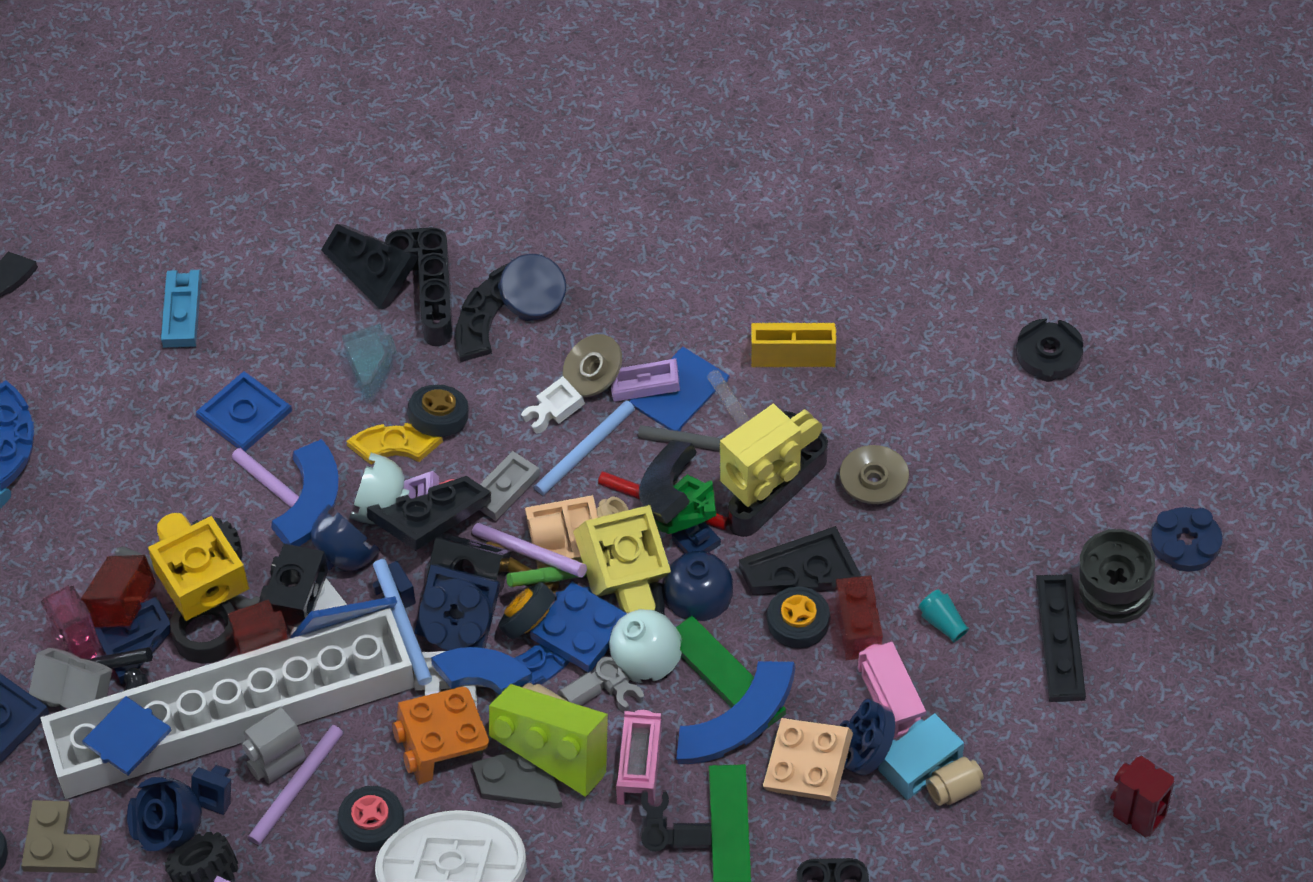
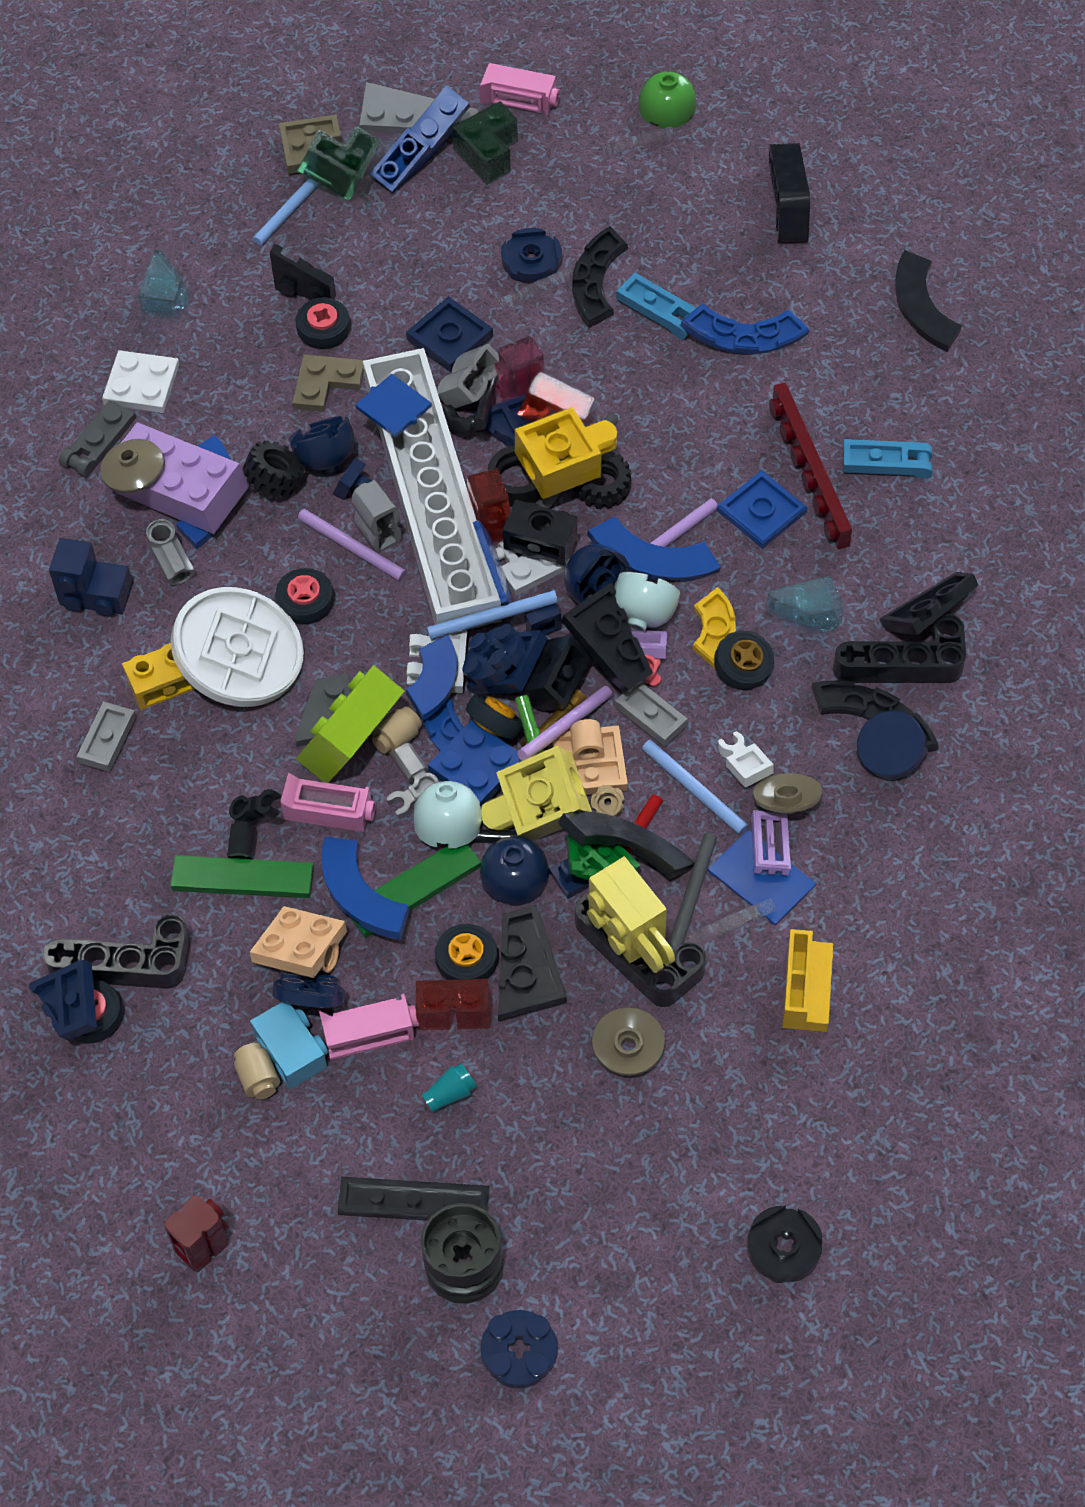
camera: 95 degrees right, 5 degrees up
(192, 366) = (814, 474): none -> dark red plate
(438, 729) = (377, 640): orange bracket -> none

